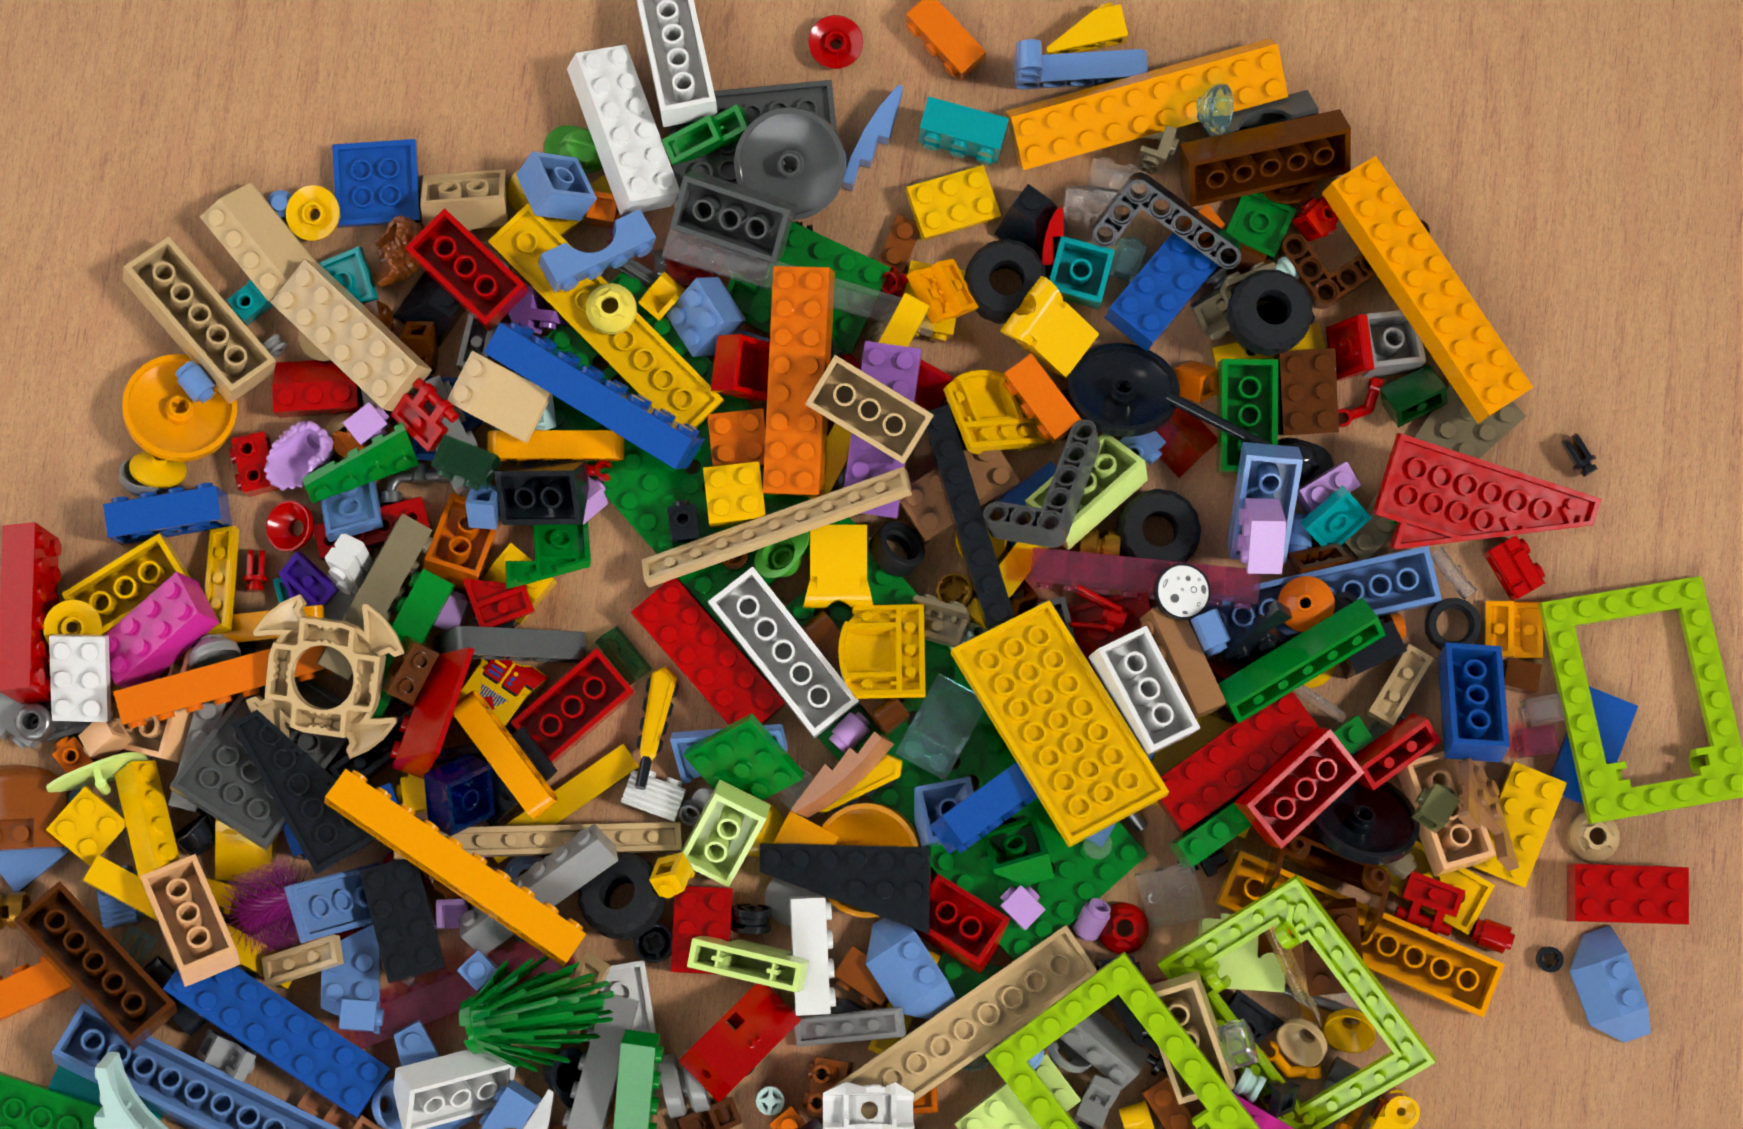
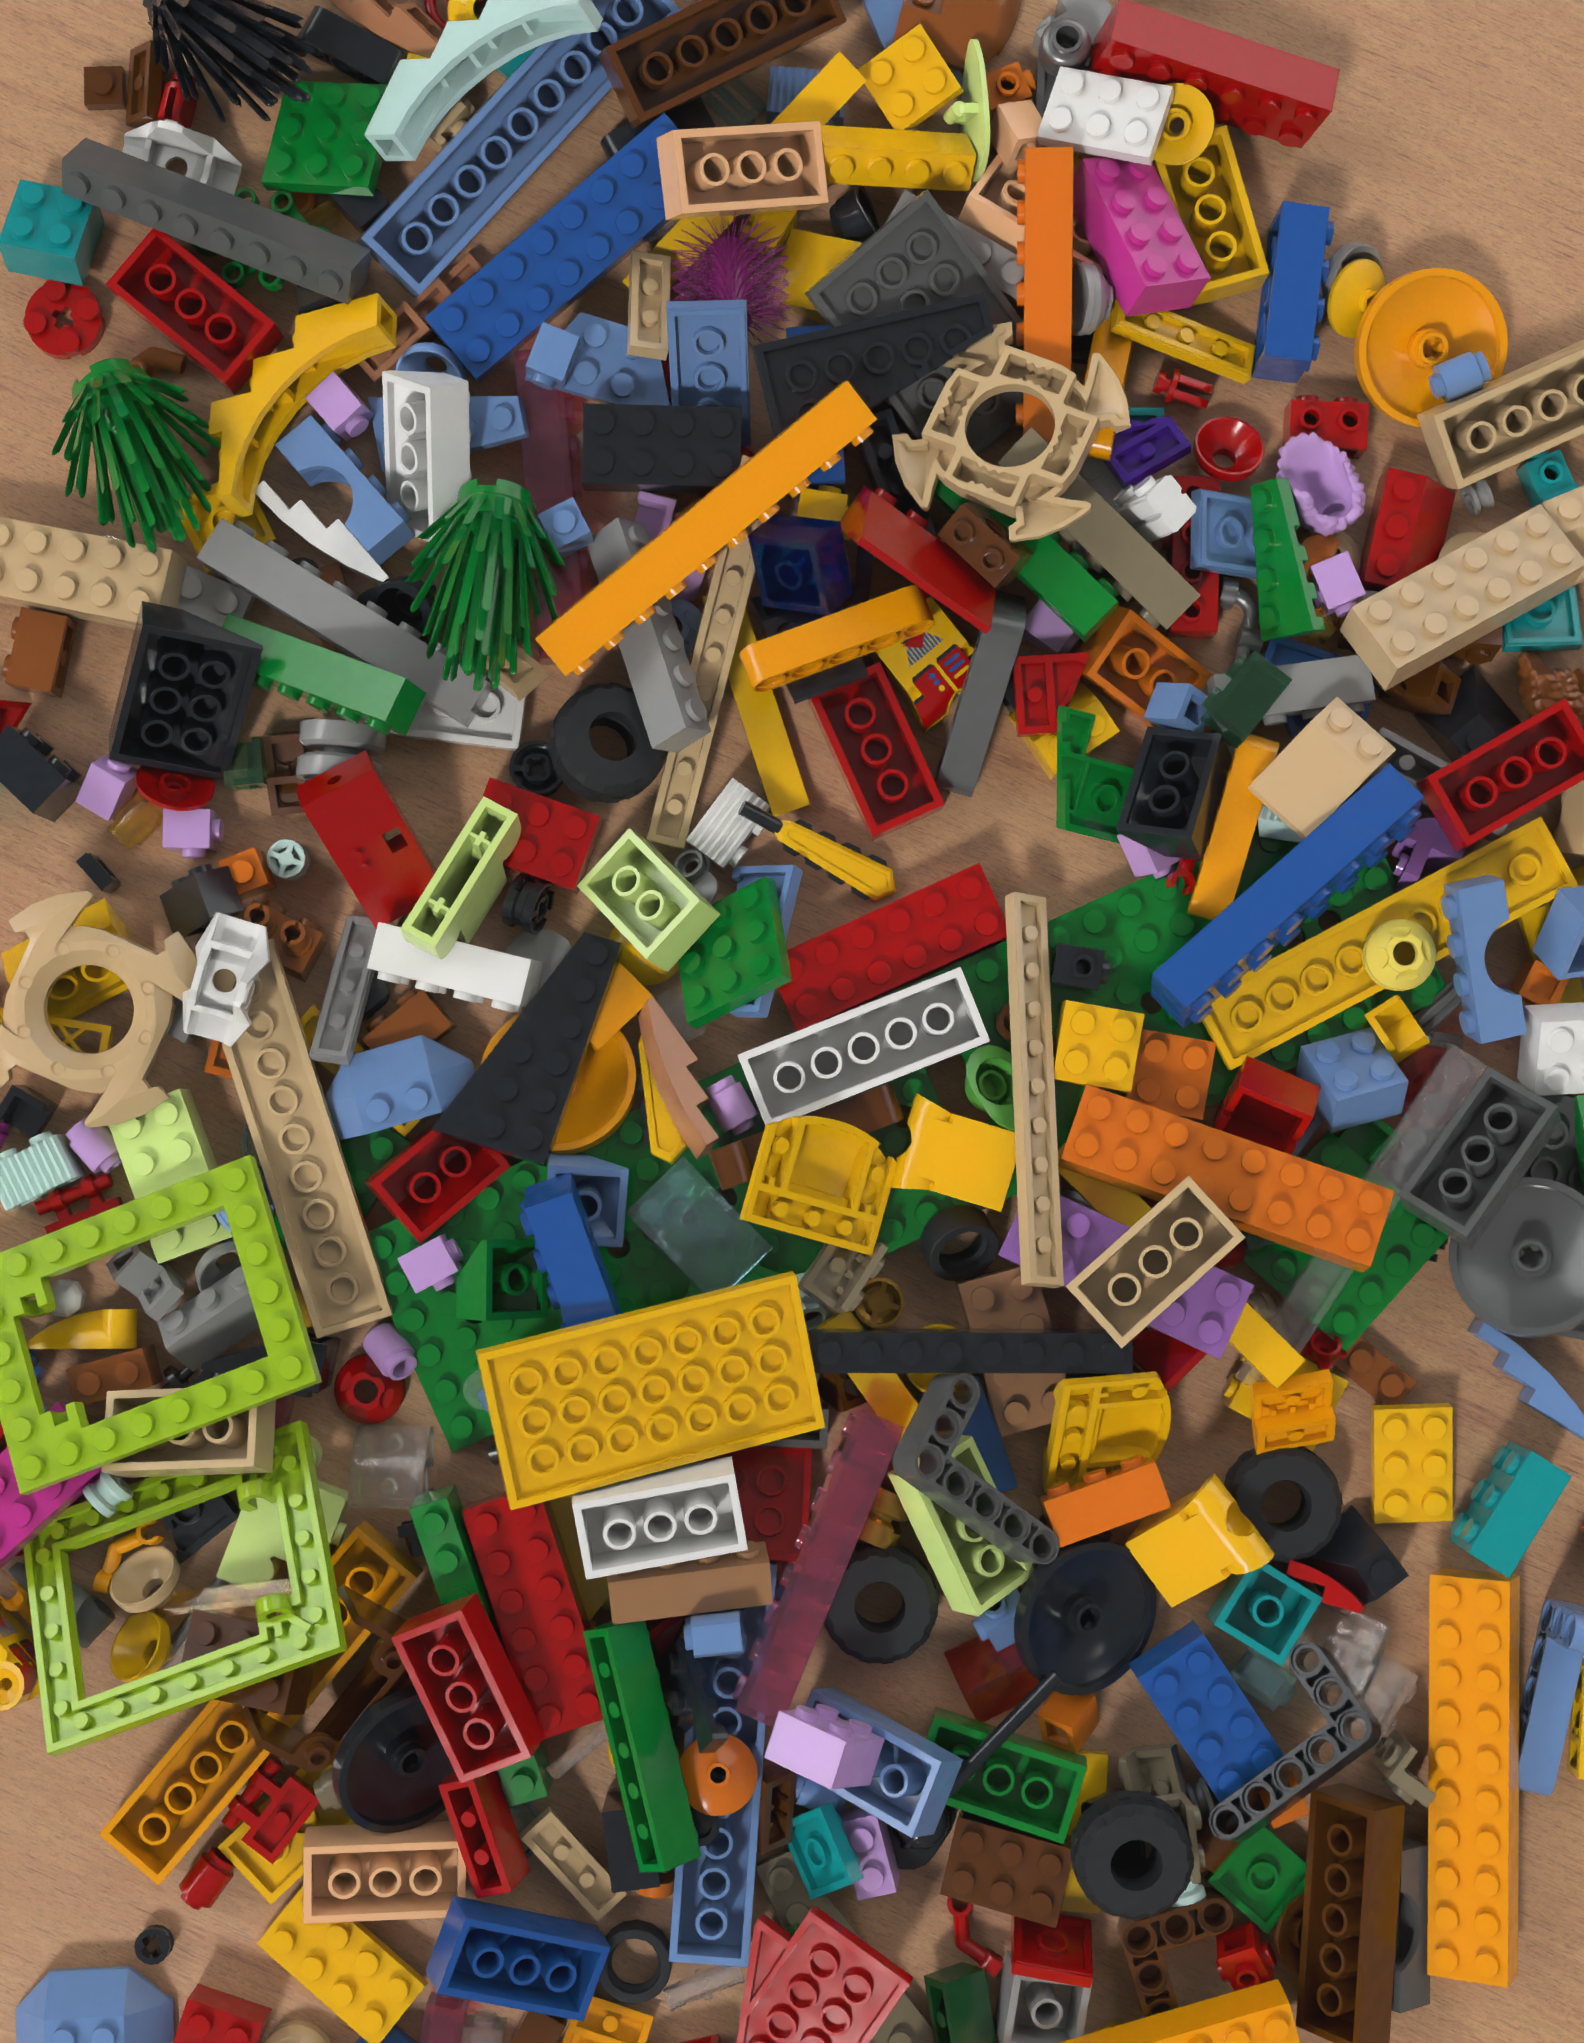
camera: 110 degrees right, 5 degrees up
(227, 1054) = (559, 177): light grey brick -> none
(418, 420) = (1320, 653): red plate -> none
(623, 655) = (926, 838): clear green plate -> none
(673, 881) = (605, 813): yellow brick -> none
(1113, 614) = (781, 1506): red plant -> none
(1182, 591) = (781, 1612): white tile -> none
(1215, 109) = (1439, 1871): clear light blue piece -> none
(1237, 1044) = (159, 1494): clear brick -> none
(1282, 1097) = (77, 1532): black tile -> none
(1435, 806) = (389, 1863): olive brick -> none
(1482, 804) = (367, 1928): medium nougat wing -> none

